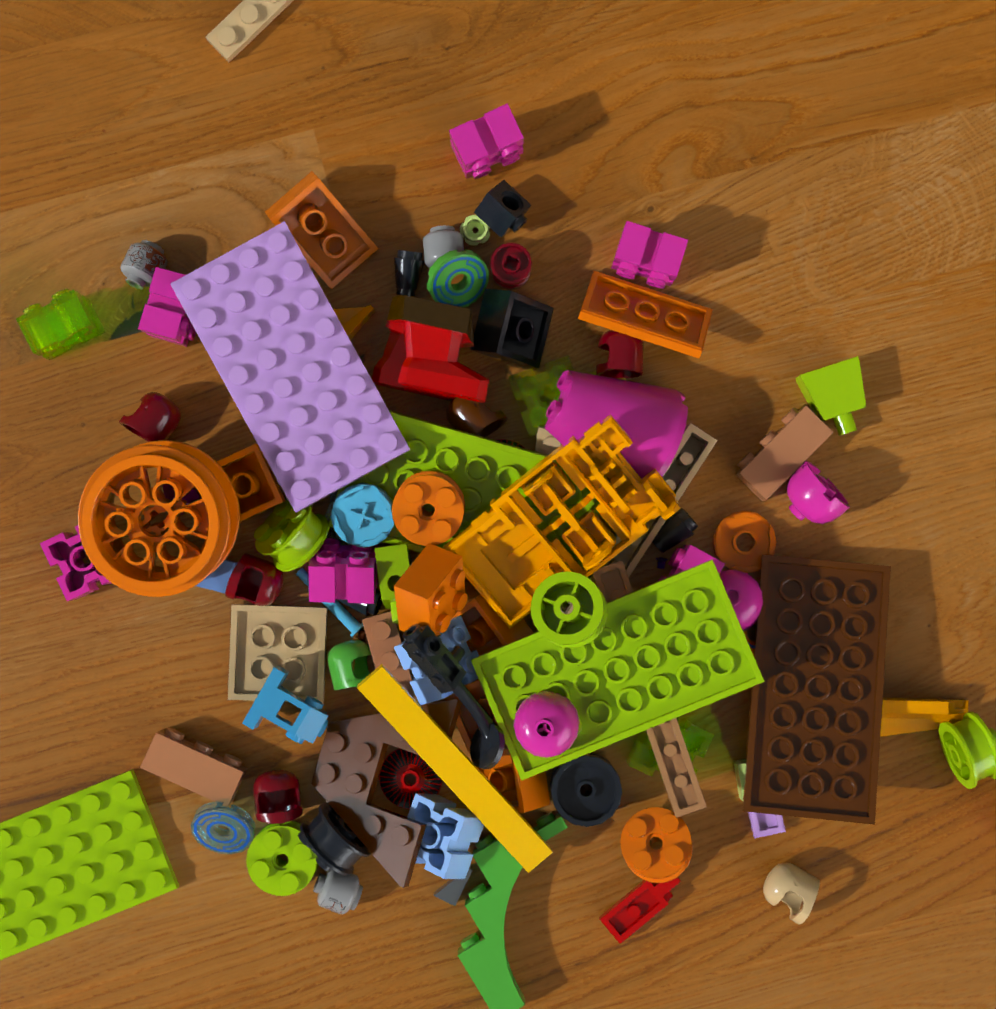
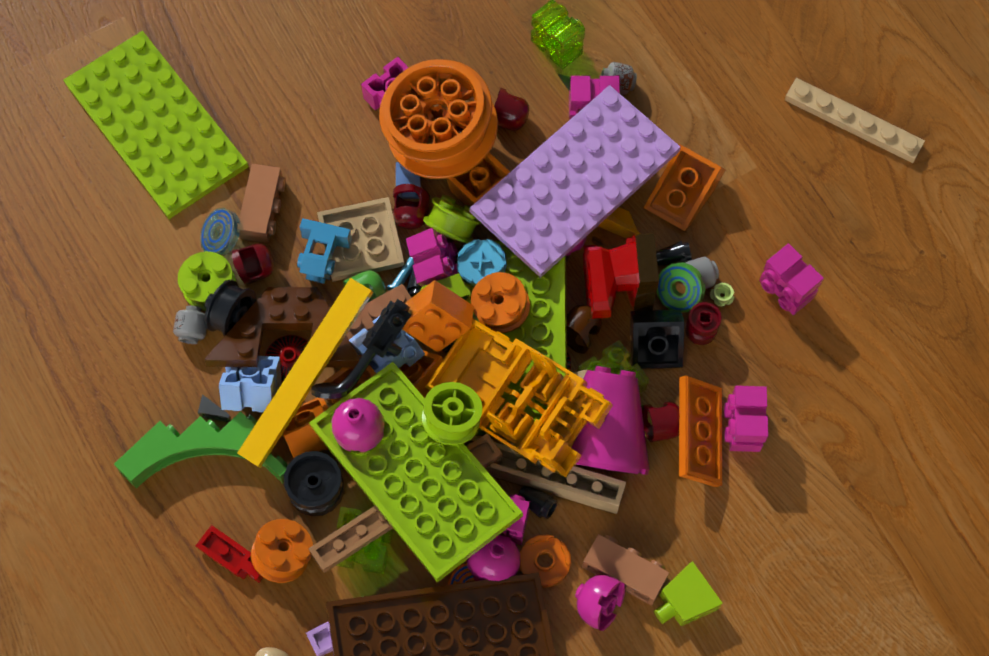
camera: 75 degrees right, 20 degrees down
(503, 209) = (745, 306): black brick -> none

